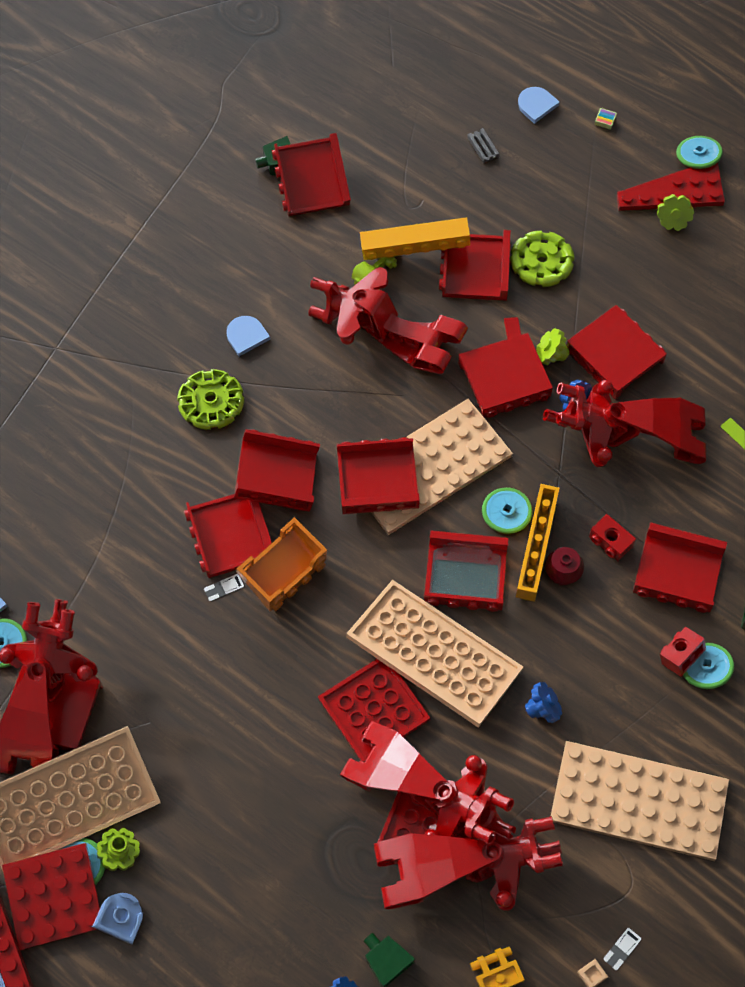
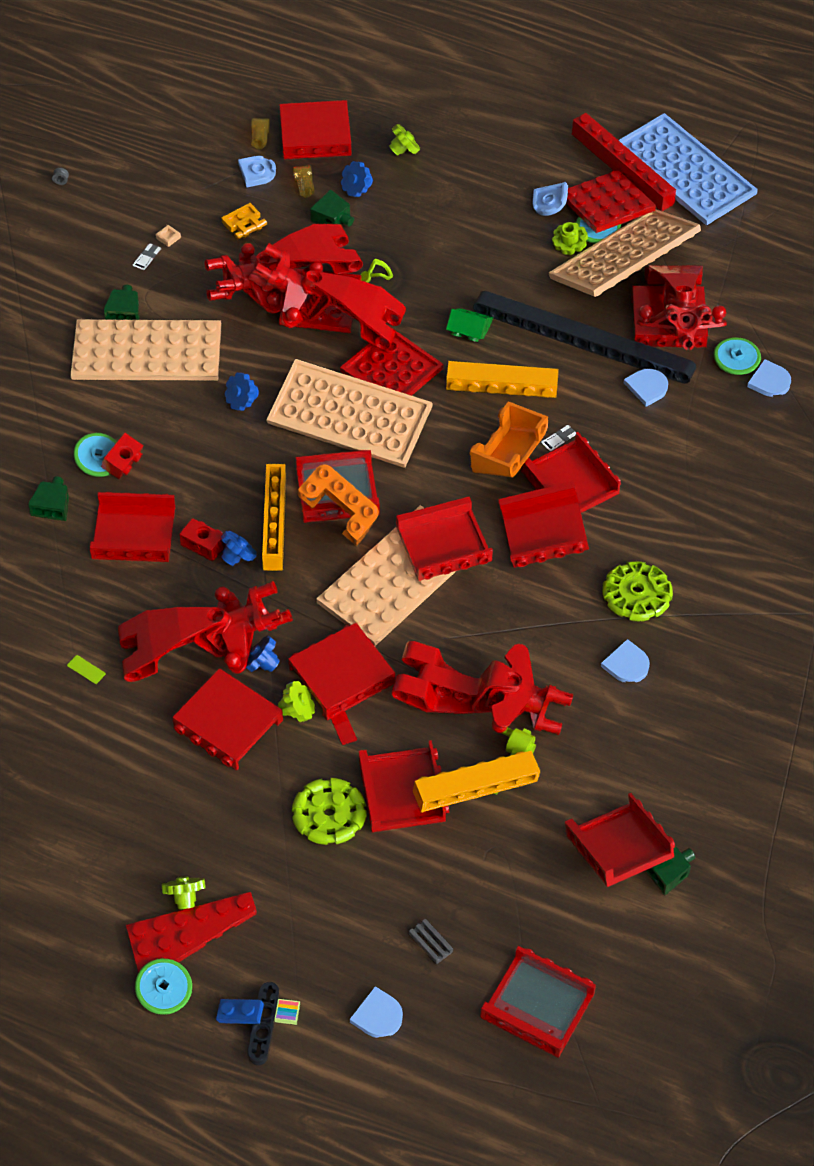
camera: 165 degrees right, 10 degrees down
(109, 627) = (647, 385): none -> light blue tile
(165, 710) = (584, 336): none -> black beam
(260, 663) = (502, 379): none -> light orange brick
(271, 749) = (468, 323): none -> green slope
(368, 848) = (366, 276): none -> lime piece
(415, 86) = (539, 1001): none -> clear light blue panel
(489, 526) = (330, 483): none -> orange windscreen
(498, 518) = (301, 555): medium azure wheel -> none
(564, 566) = (244, 507): dark red cone -> none
(578, 514) = (236, 548): none -> blue plant
(626, 114) = (265, 1023): none -> black beam
(642, 121) = (240, 1011): none -> blue plate
(659, 865) = (122, 304): none -> dark green torso

